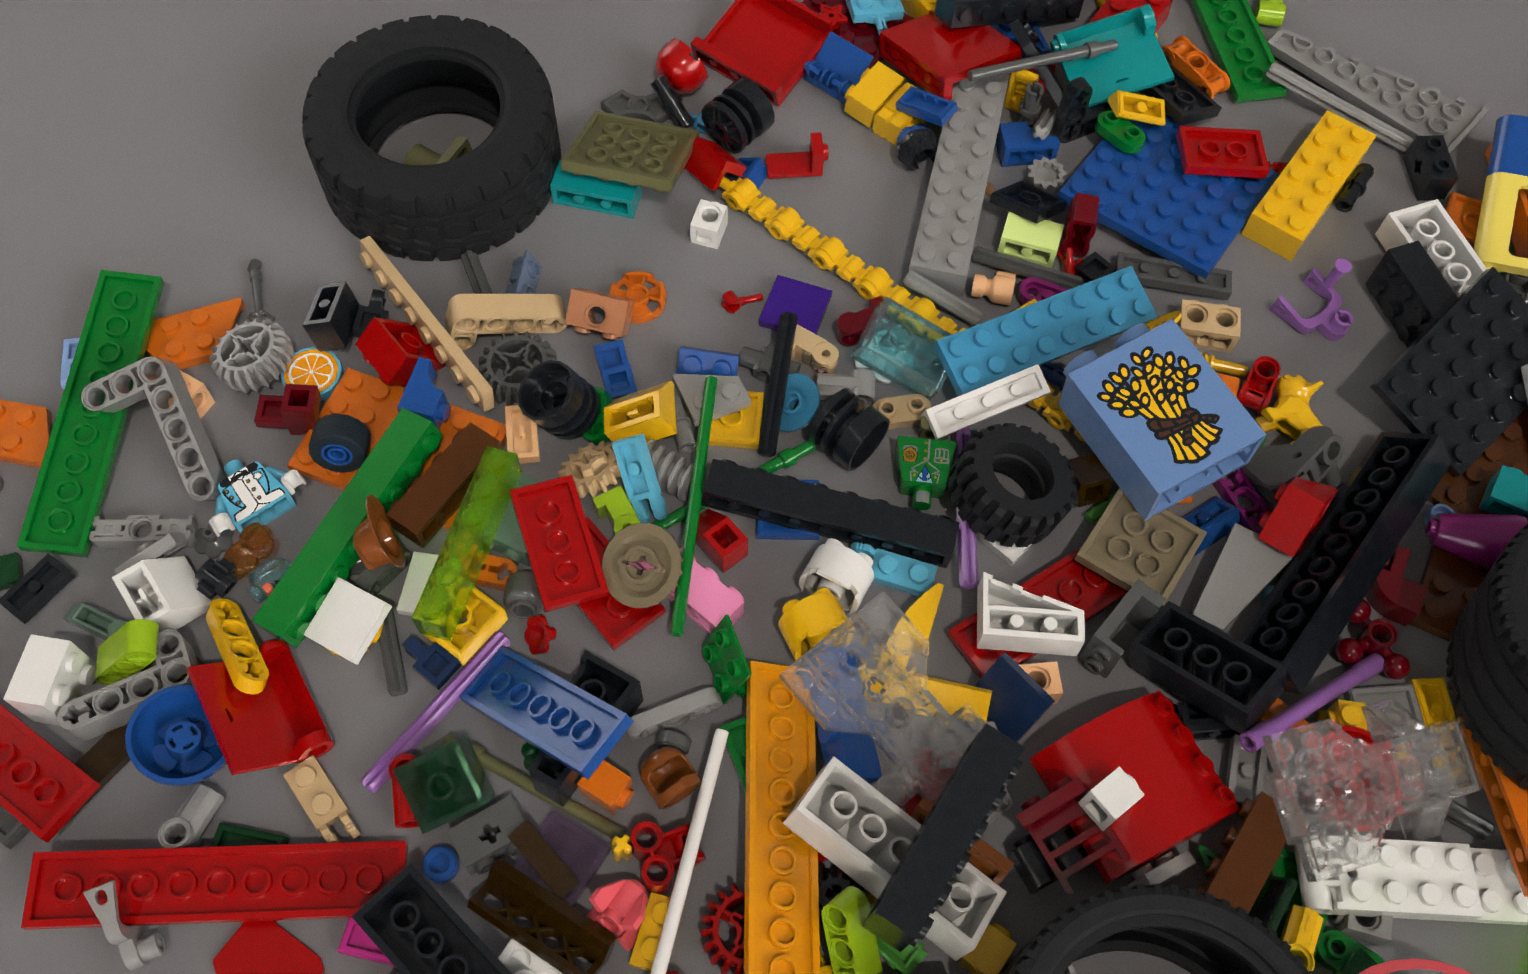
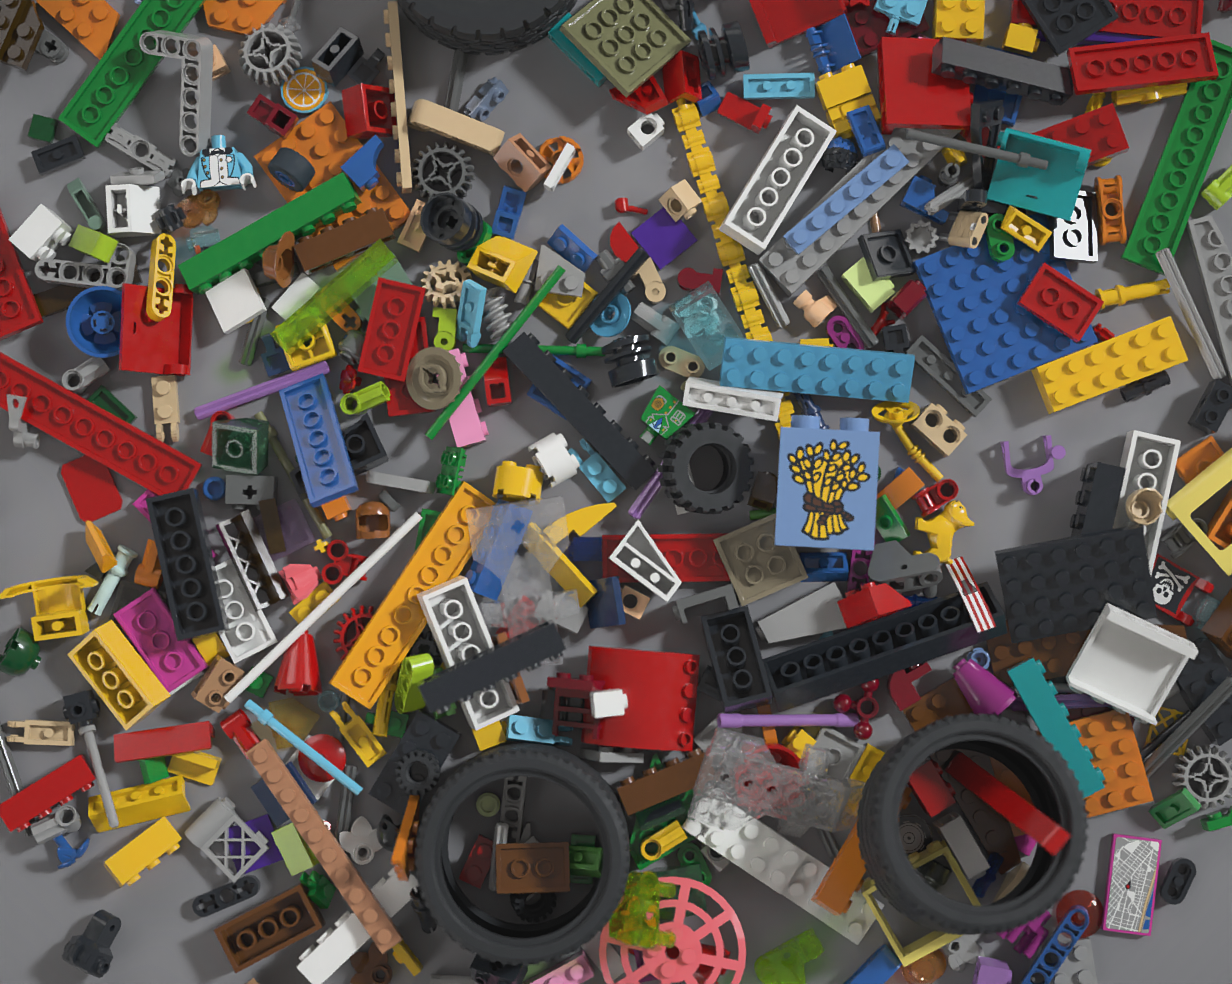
camera: 35 degrees right, 25 degrees up
(575, 638) = (366, 399): none -> lime piece
(643, 294) = (559, 167): none -> white tile
(687, 191) = (644, 99): none -> red wing
(756, 334) = (622, 243): none -> red tile
(779, 267) = (680, 201): none -> tan brick
(823, 119) = (778, 86): none -> medium azure plate
(874, 192) = (777, 180): none -> white brick
(947, 655) = (586, 549): none -> clear blue brick
(954, 168) = (845, 199): none -> medium blue plate
(1033, 911) = (535, 731): none -> medium azure hinge
(1084, 141) = (966, 229): none -> tan piece
(1276, 117) = (1121, 294): none -> yellow pin
(1392, 446) = (971, 595): none -> sticker
(1463, 262) = (1144, 506): none -> tan hair

